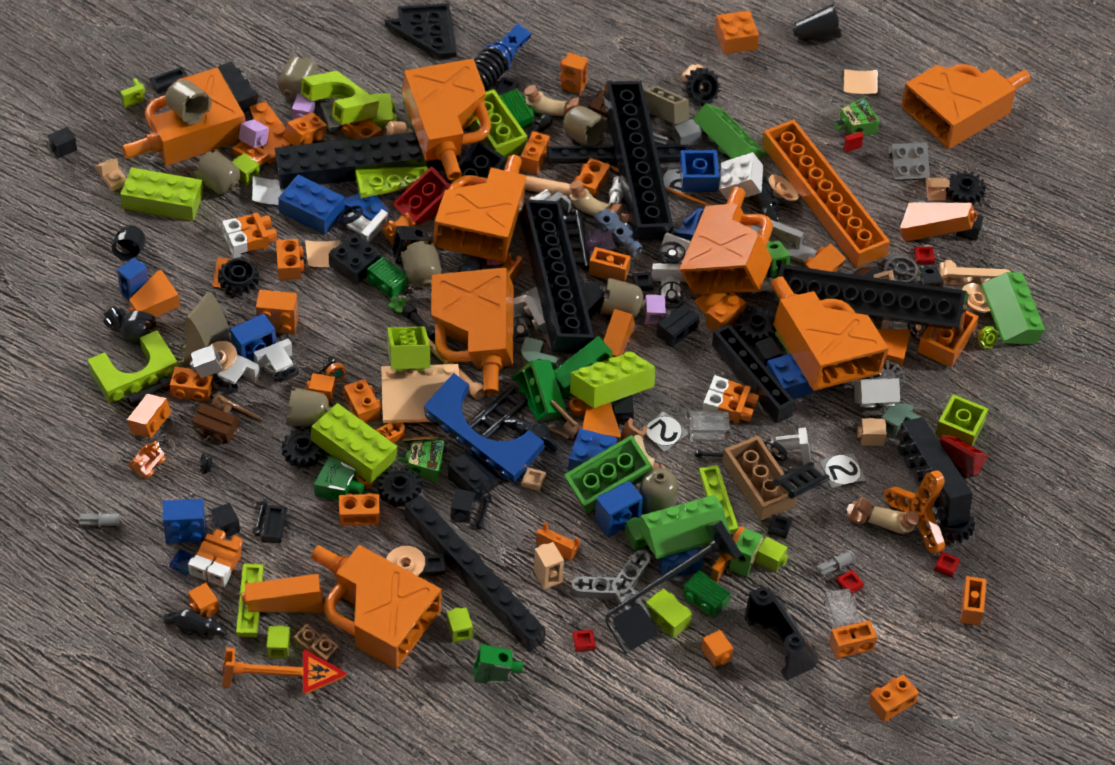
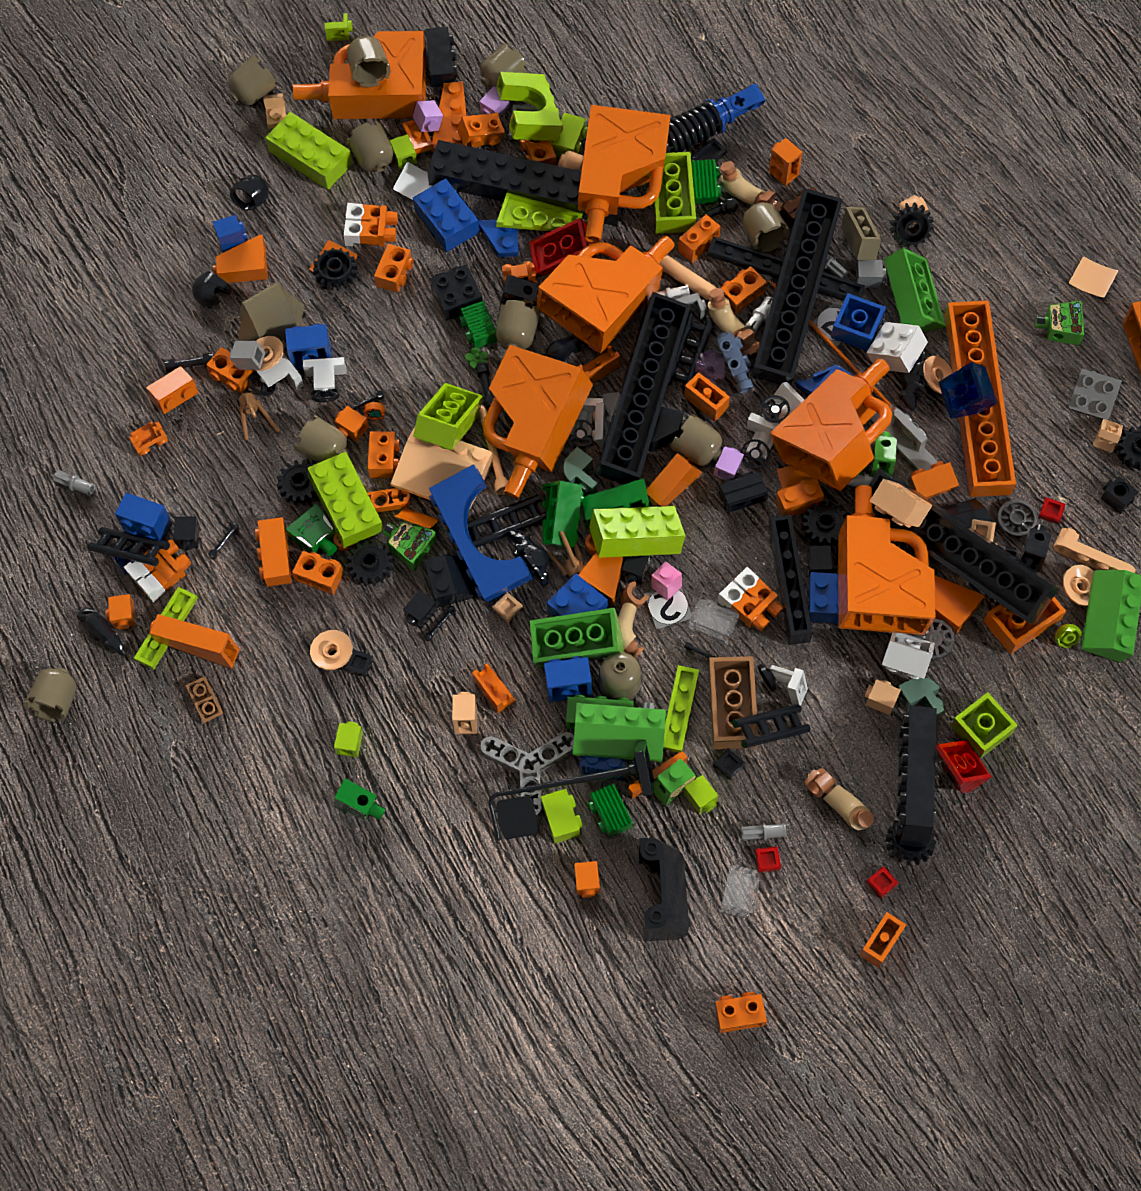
camera: 30 degrees right, 15 degrees up
(62, 142) = (241, 54): black brick -> none
(81, 155) = (250, 82): none -> dark tan cylinder
(114, 317) = (195, 268): black gear -> none
(118, 384) = (161, 344): lime arch -> none
(164, 81) = (383, 23): black tile -> none
(181, 686) = (51, 694): none -> dark tan cylinder
(191, 550) = (123, 538): none -> black bar
(206, 463) = (201, 462): black bush -> none
(215, 423) = (230, 422): reddish brown brick -> none
(274, 524) = (232, 553): black tile -> none
(278, 642) = (168, 684): lime brick -> none
(280, 310) = (348, 324): orange brick -> none
(311, 507) = (273, 552): none -> orange brick
(315, 671) = (186, 733): orange piece -> none
(318, 252) = (428, 268): light nougat sticker -> none
(361, 225) = (485, 255): white piece -> none
(389, 603) = (286, 691): orange piece -> none
(427, 27) = (666, 55): black wing -> none
(475, 573) = (391, 691): black brick -> none
(480, 160) = (631, 229): black slope -> none
(583, 640) = (463, 808): red tile -> none
(643, 280) = (735, 427): black tile -> none
(654, 410) = (666, 580): none -> bright pink brick
(736, 32) = (986, 172): orange brick -> none
(816, 186) = (967, 391): none -> clear blue slope
(816, 278) = (900, 503): none -> light nougat brick
(819, 25) = (1079, 196): black cone -> none
(842, 469) = (830, 726): sticker -> none
(852, 639) = (731, 929): orange brick -> none
(853, 141) = (1044, 347): red tile -> none
(934, 542) = (882, 807): orange piece -> none
(936, 219) = (1082, 475): slope -> none

